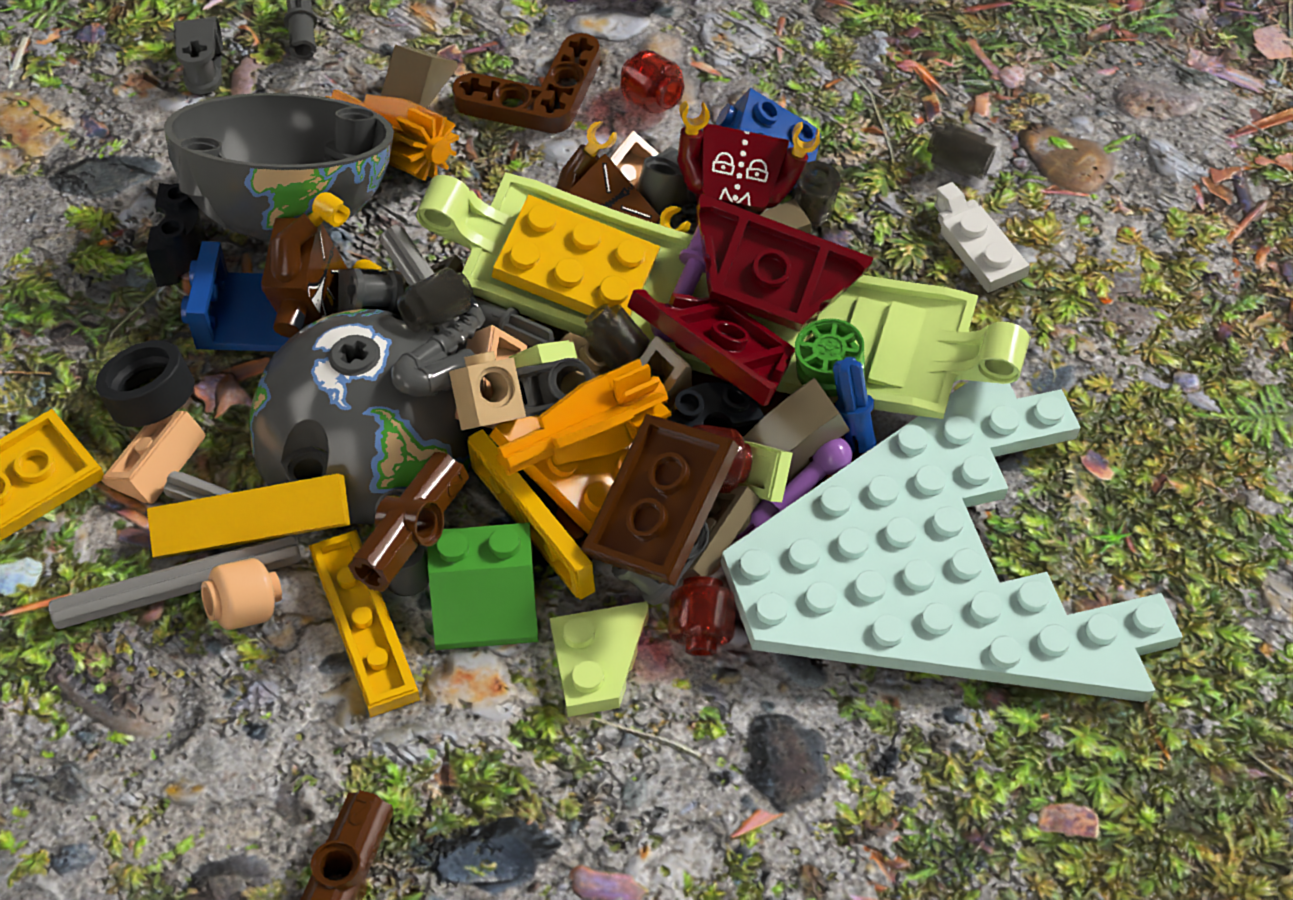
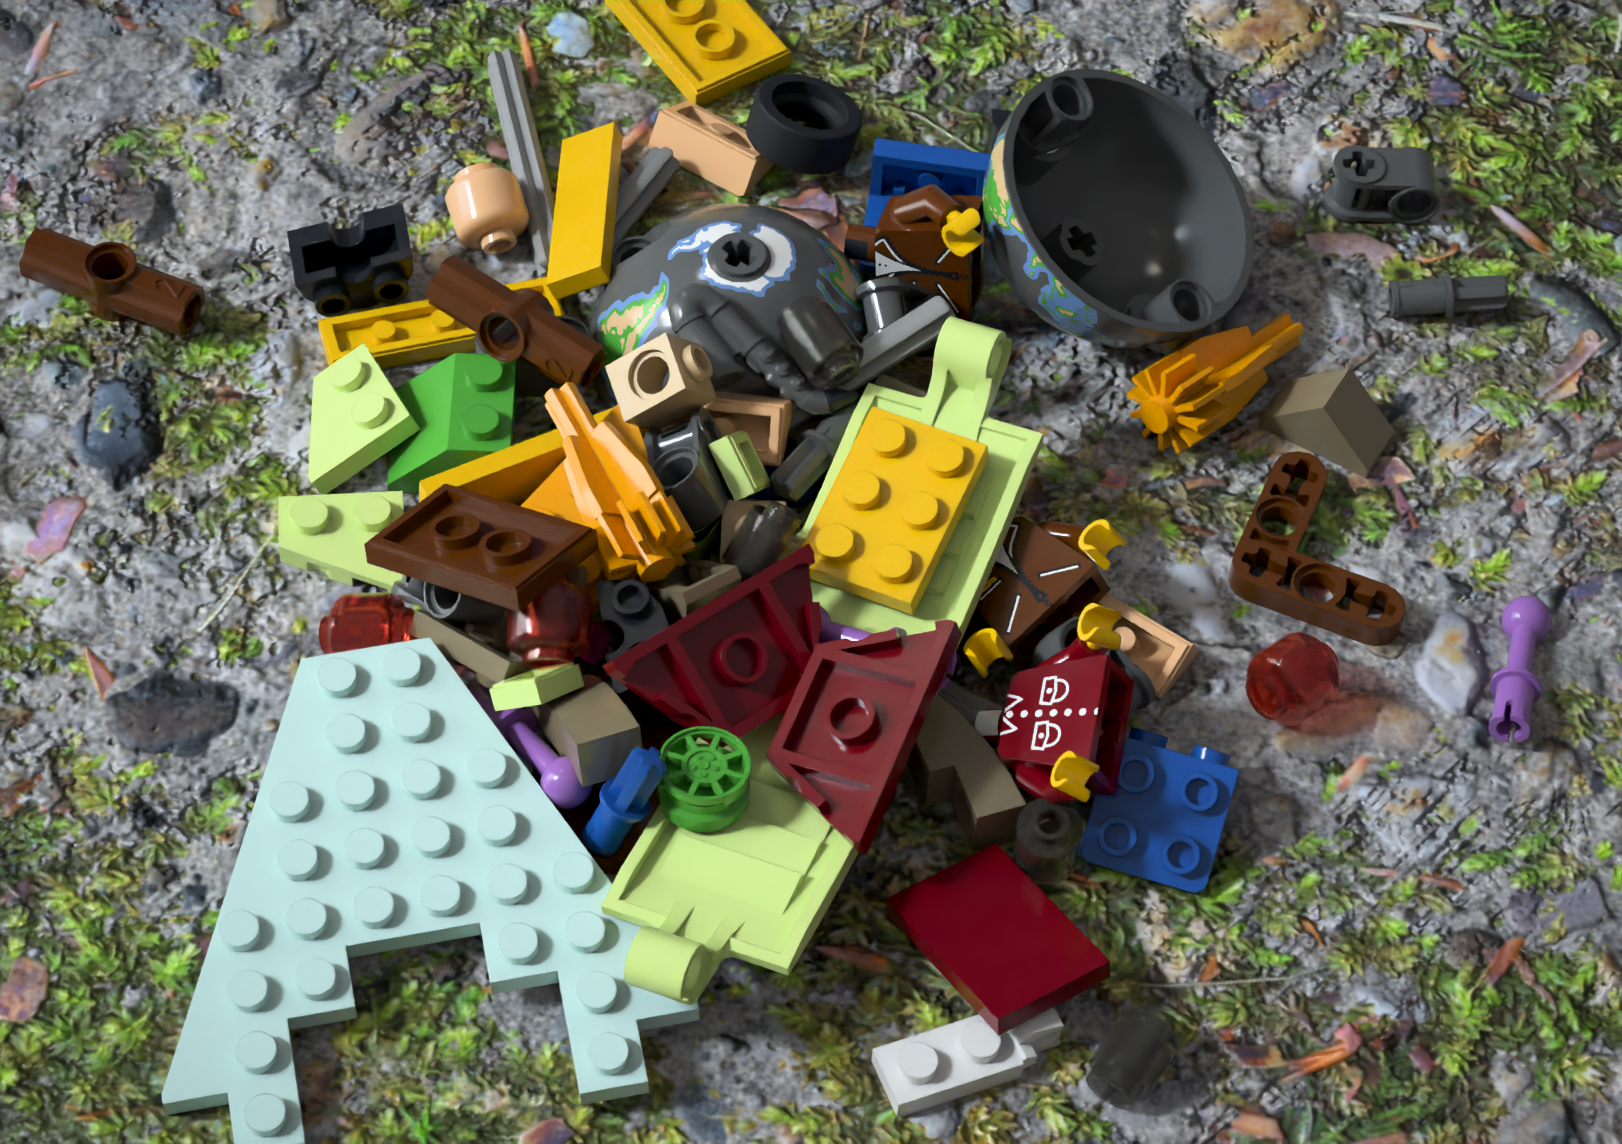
camera: 90 degrees right, 0 degrees up
(305, 677) = (355, 264): none -> black cylinder
(476, 660) = (353, 419): none -> yellowish green wing
(897, 214) = (998, 939): none -> dark red tile

